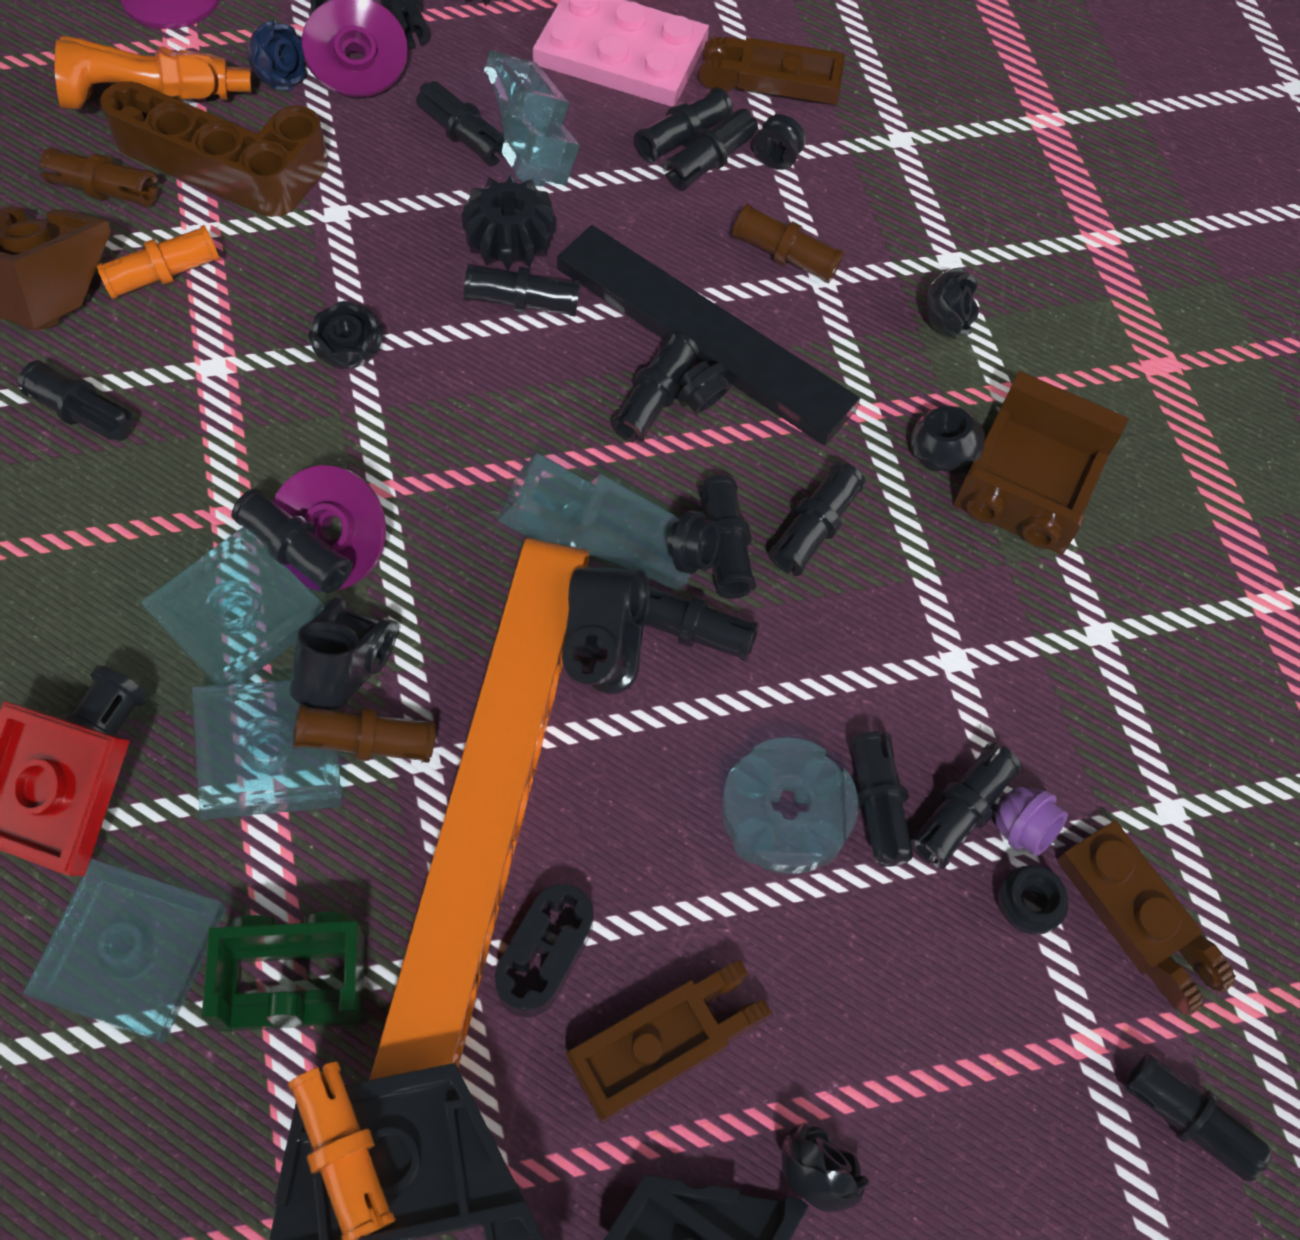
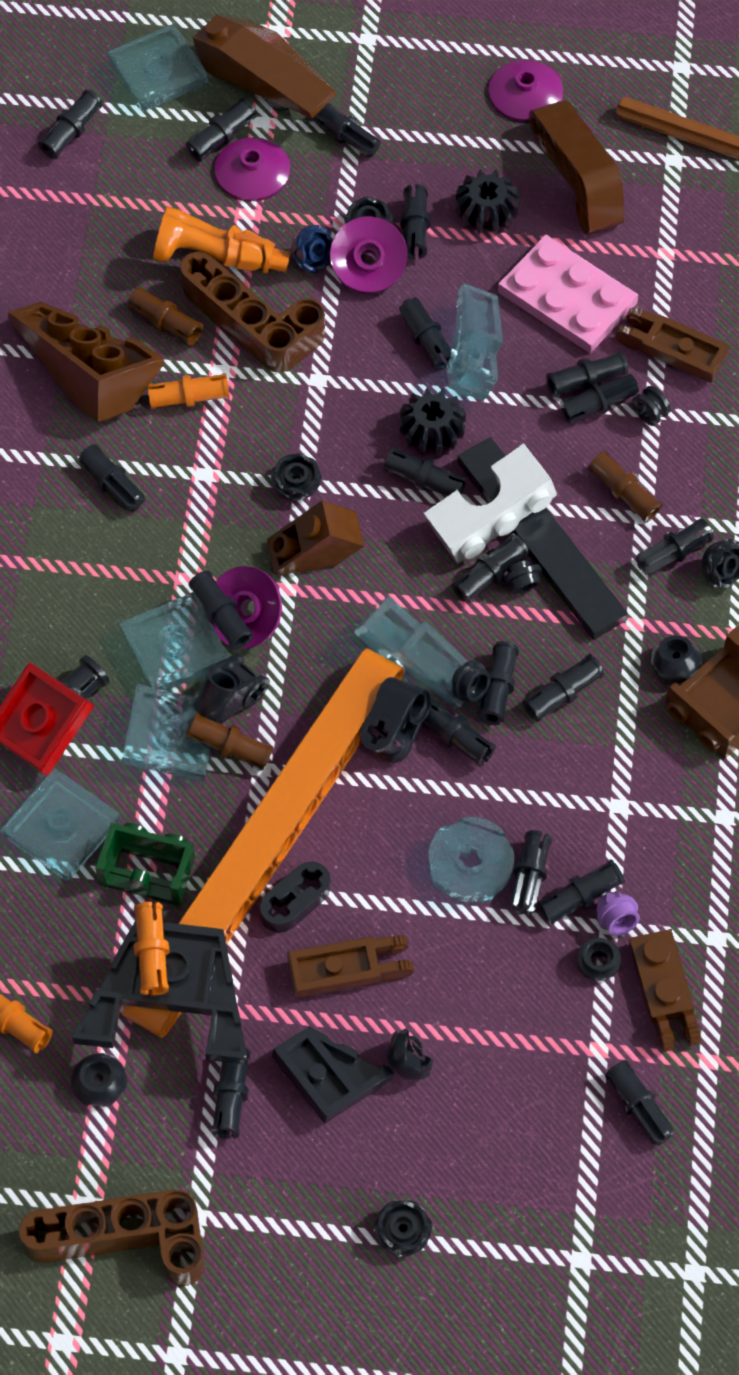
camera: 25 degrees right, 0 degrees up
(400, 409) = (316, 539): none -> reddish brown slope
(606, 340) = (468, 528): none -> white arch
(881, 301) = (673, 547): none -> black axle

